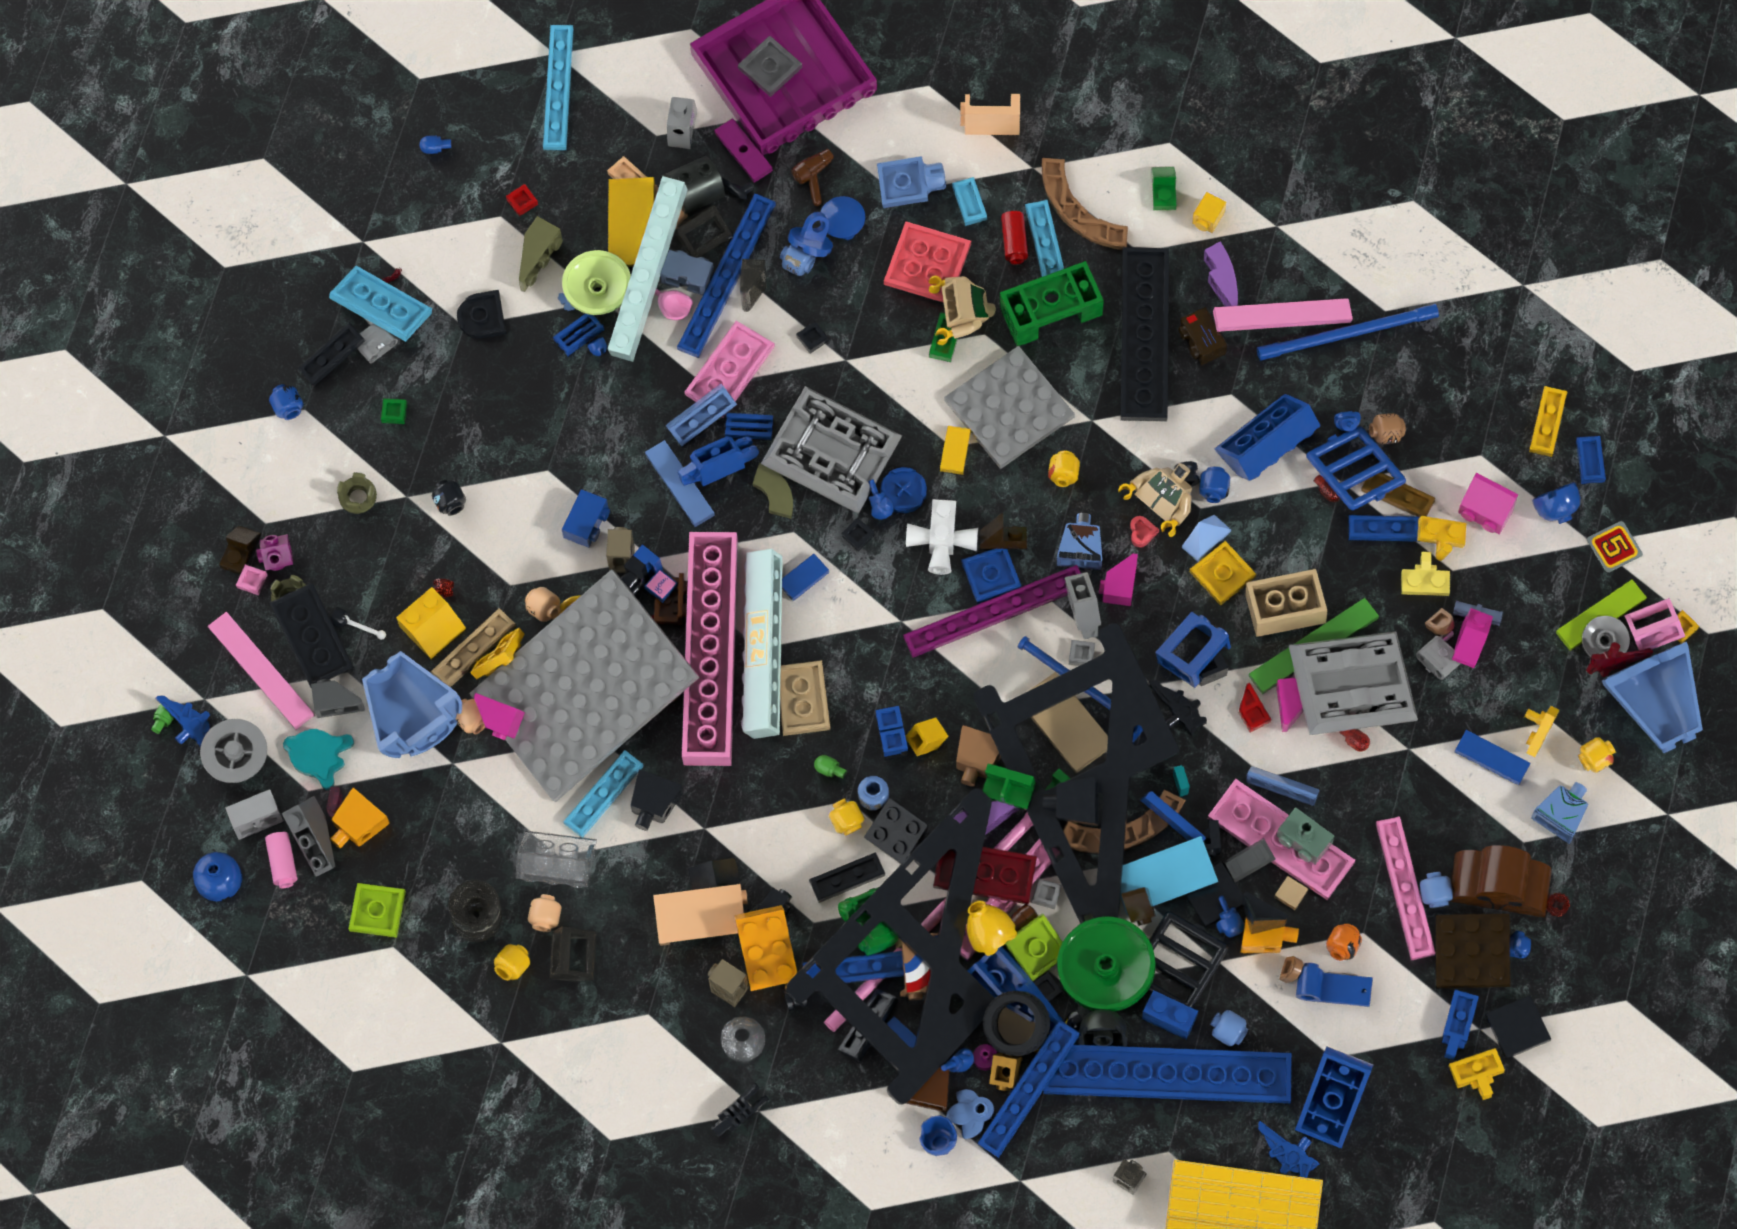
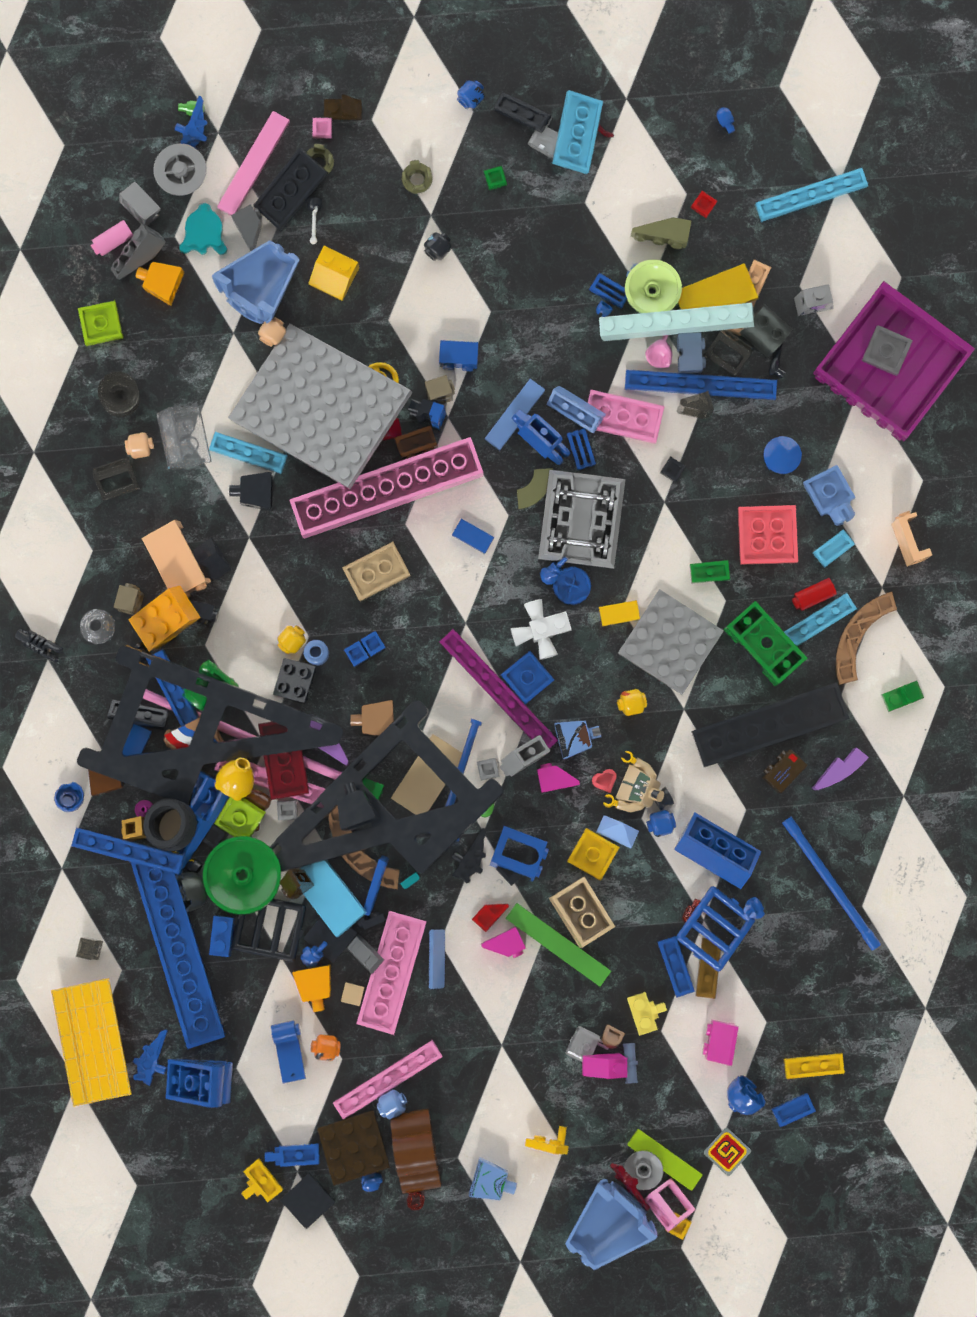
camera: 65 degrees right, 15 degrees up
(217, 876) = (84, 197): blue cylinder -> none
(275, 552) = (346, 136): magenta brick -> none
(334, 800) = (169, 258): clear pink tile -> none
(443, 587) = (365, 271): clear red bush -> none
(473, 648) = (327, 312): tan tile -> none
(482, 315) = (598, 212): black tile -> none
(499, 717) = (273, 351): dark pink slope -> none
(500, 656) = (324, 335): yellow plate -> none
(511, 962) = (93, 436): yellow head -> none
(542, 604) = (378, 349): light nougat head -> none
(661, 585) = (423, 432): bright pink tile -> none
(736, 141) = (815, 348): magenta tile -> none
(762, 644) = (405, 525): light aqua brick -> none
(796, 260) = (733, 433): medium blue head -> none
(808, 170) = (811, 413): reddish brown piece -> none
(812, 239) = (750, 438): blue tile -> none
(829, 767) = (327, 612): bright green cylinder -> none
(847, 877) = (247, 657): black tile -> none
(858, 534) = (523, 564): black tile -> none
(926, 736) = (375, 676): yellow brick -> none
(960, 1061) = (131, 792): blue piece -> none
(963, 304) = (738, 576): tan torso -> none
(966, 1113) = (96, 811): medium blue plate -> none
(999, 537) = (558, 673): dark brown slope -> none
(1008, 786) = (352, 752): green panel -> none
(1209, 213) = (892, 739): yellow brick -> none
(1229, 1028) = (228, 983): medium blue head -> none
(1262, 915) = (317, 980): black slope -> none
(1282, 315) = (824, 827): bright pink tile -> none
(1291, 969) = (291, 1014): medium nougat tile -> none
(1305, 836) = (395, 991): sand green brick -> none
(1354, 680) = (534, 986): light grey piece -> none
(1356, 739) = (492, 1002): clear red cylinder -> none
(1387, 428) = (759, 942): medium nougat head -> none
(1442, 533) = (686, 1013): yellow plate -> none
(1492, 757) = (516, 1112): blue tile -> none
(1596, 755) = (545, 1193): yellow head -> none

